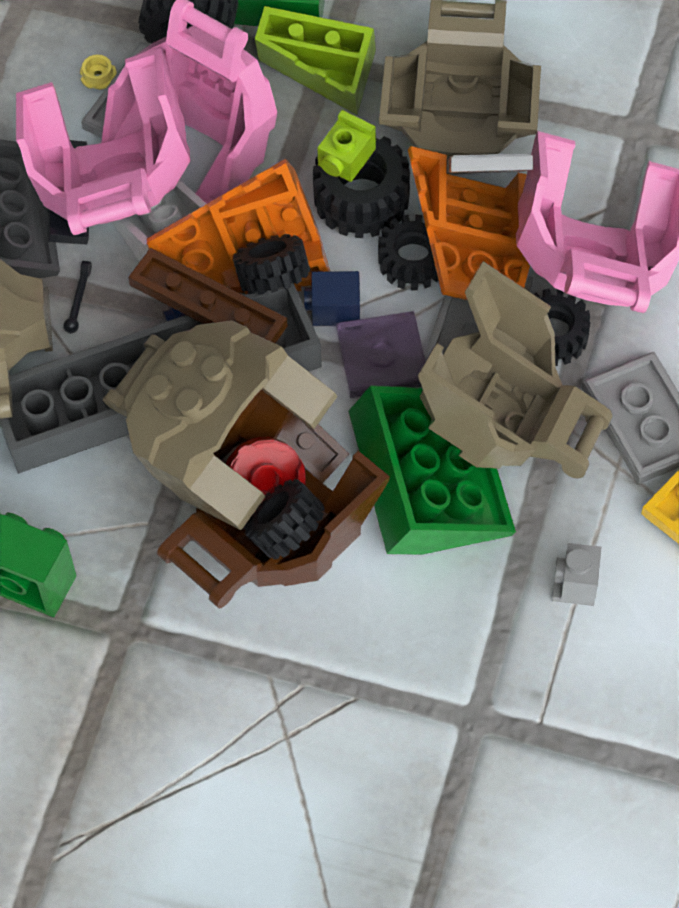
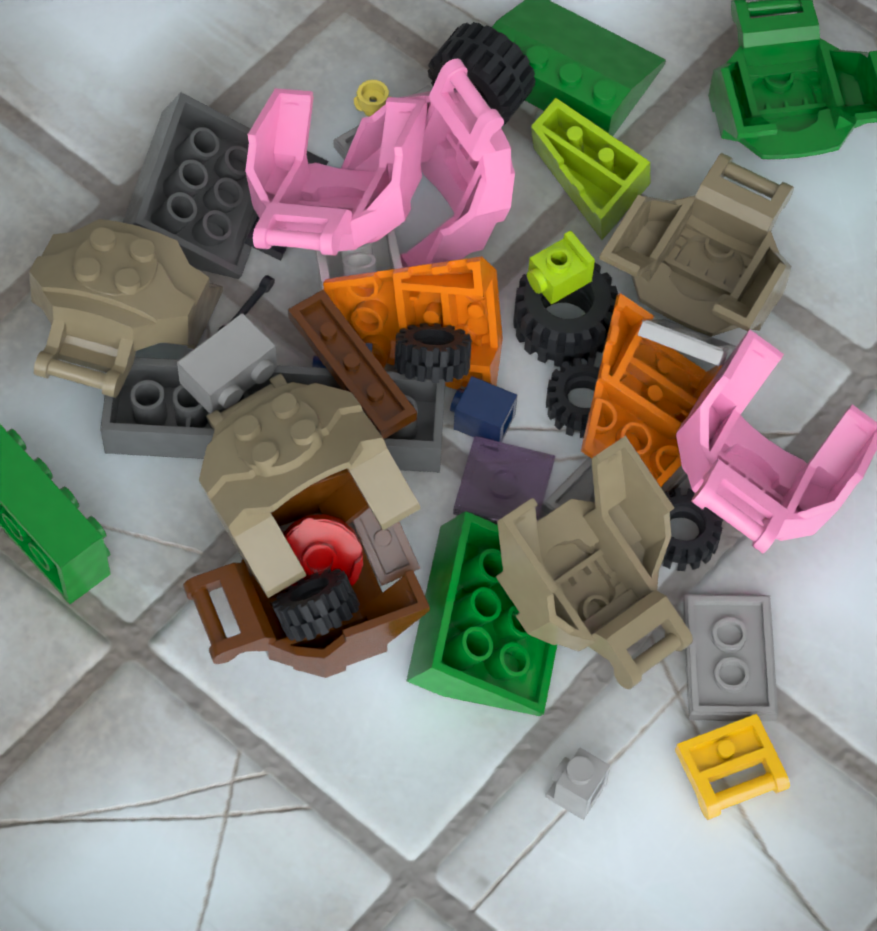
camera: 20 degrees right, 0 degrees up
(99, 347) = (227, 364): none -> light grey brick

